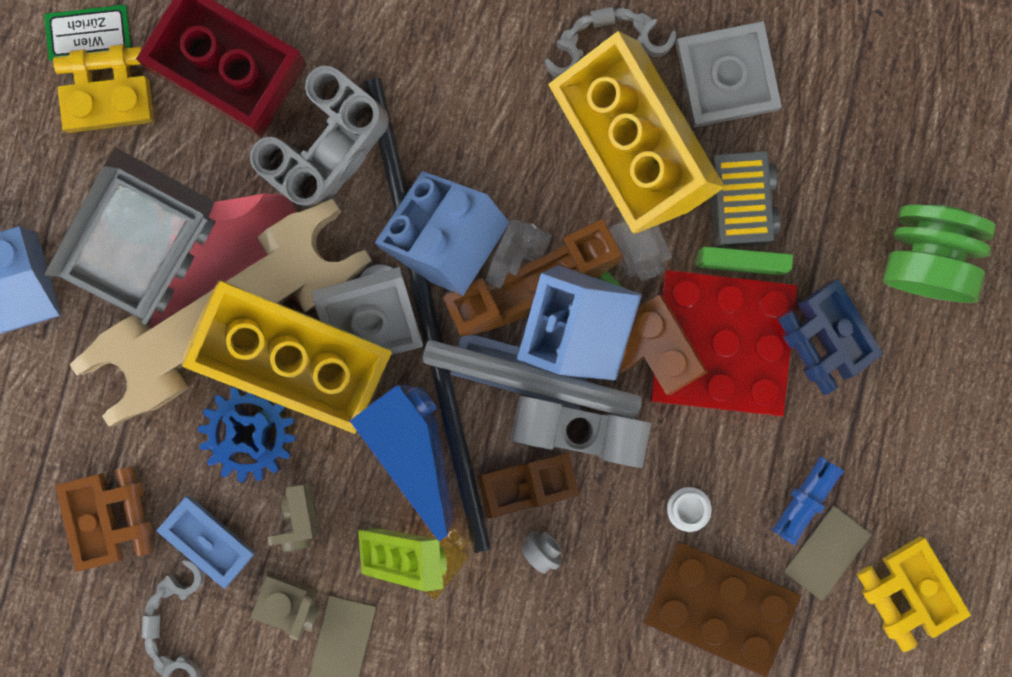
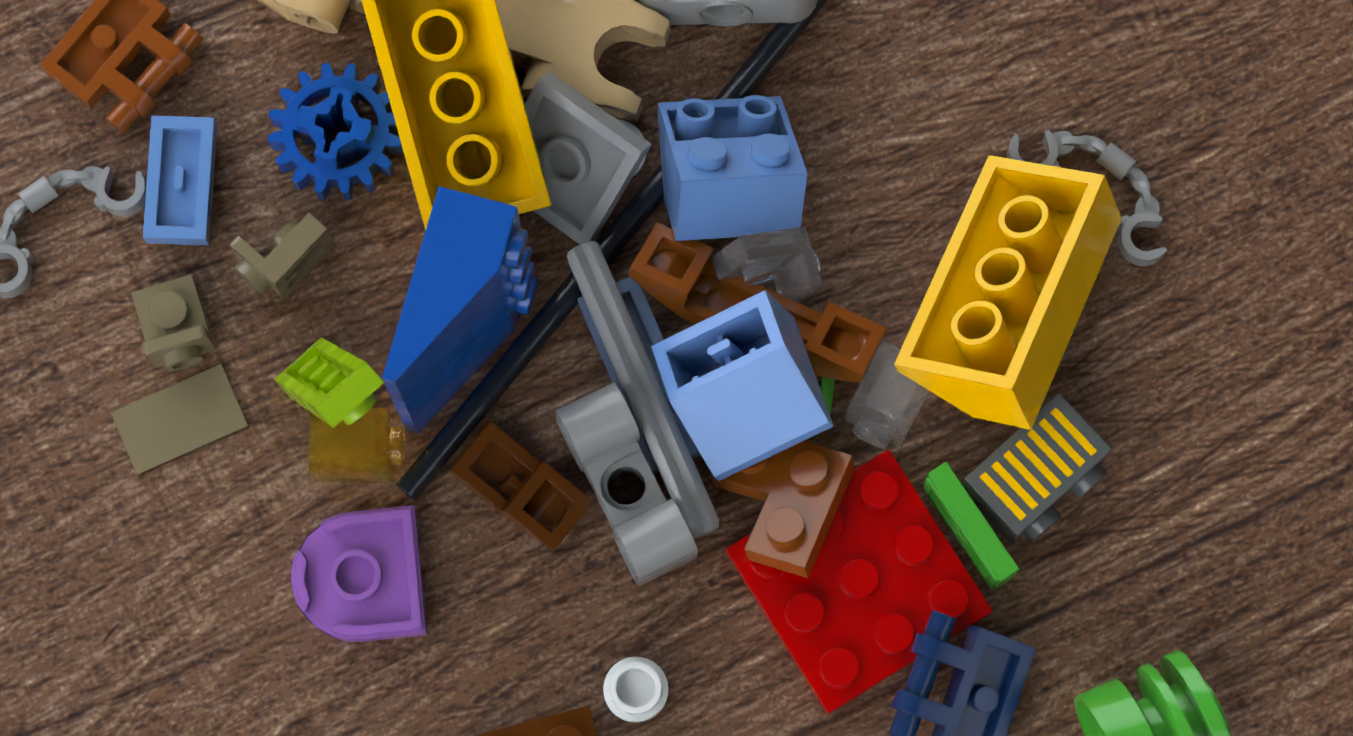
camera: 60 degrees right, 10 degrees down
(511, 608) = (363, 576): none -> medium lavender tile
(542, 551) = (456, 557): light grey plate -> none
(728, 74) = (1166, 346): light grey plate -> none

